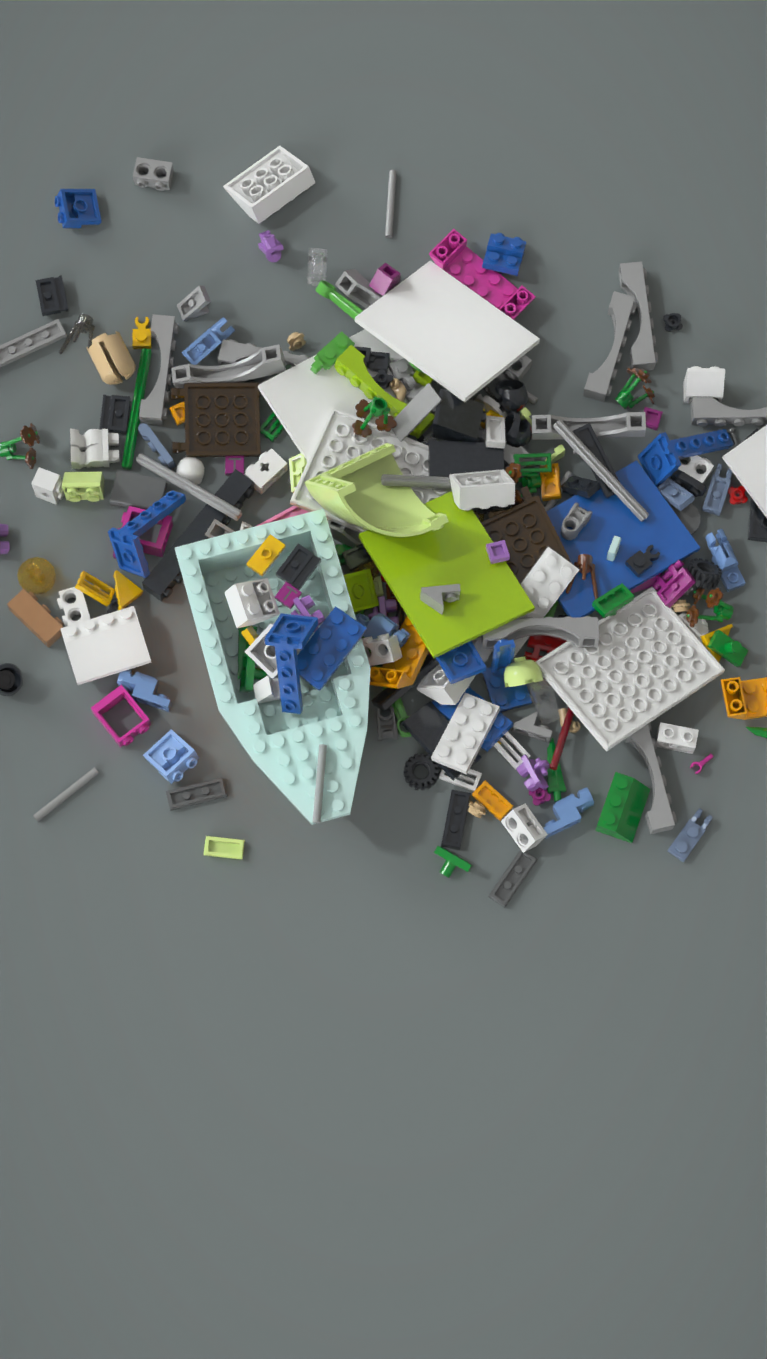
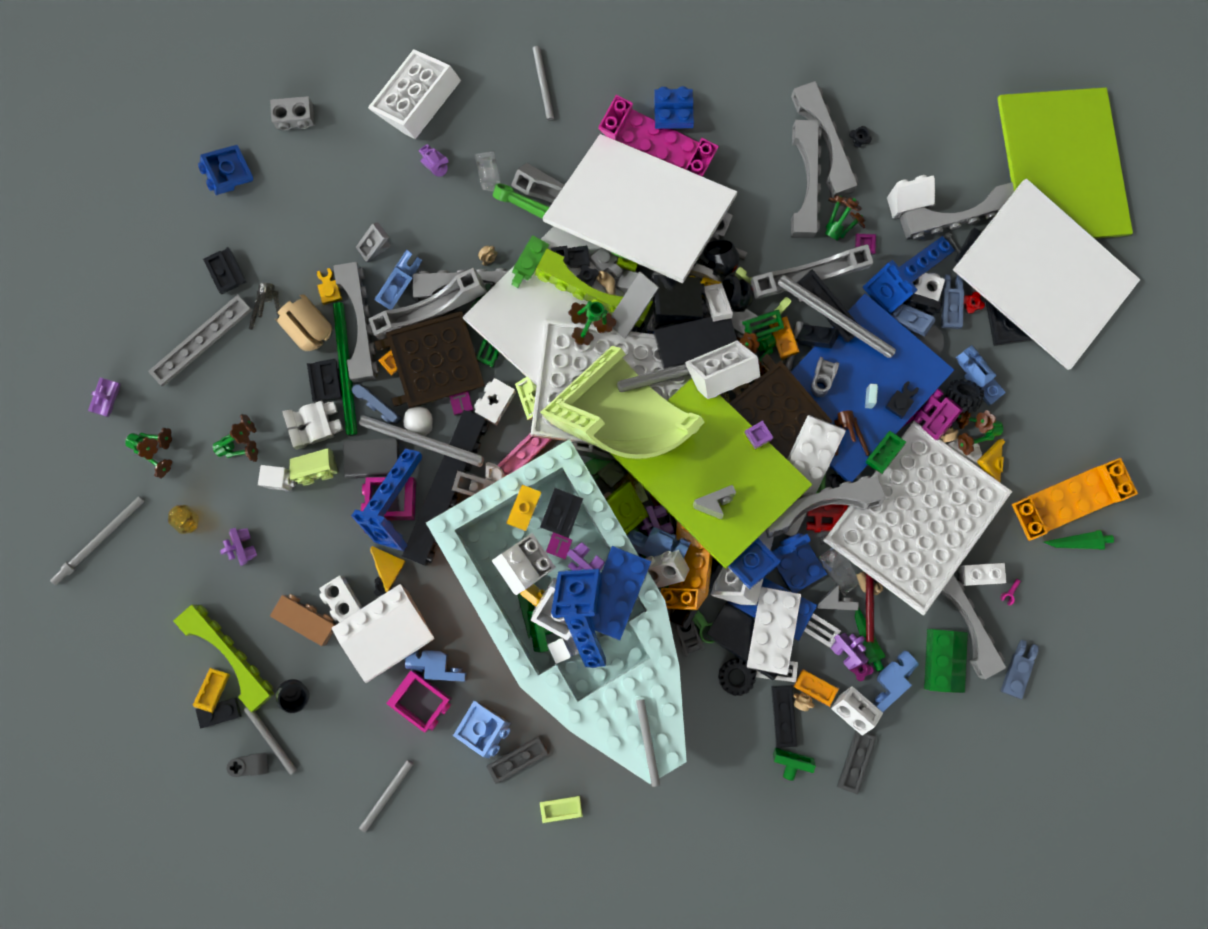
camera: 15 degrees left, 10 degrees up
(36, 575) = (292, 573): clear yellow tile -> none
(94, 590) = (350, 580): yellow tile -> none
(385, 279) = (561, 167): magenta slope -> none
(522, 672) = (815, 554): yellowish green cylinder -> none
(727, 648) = (1007, 466): green tile -> none

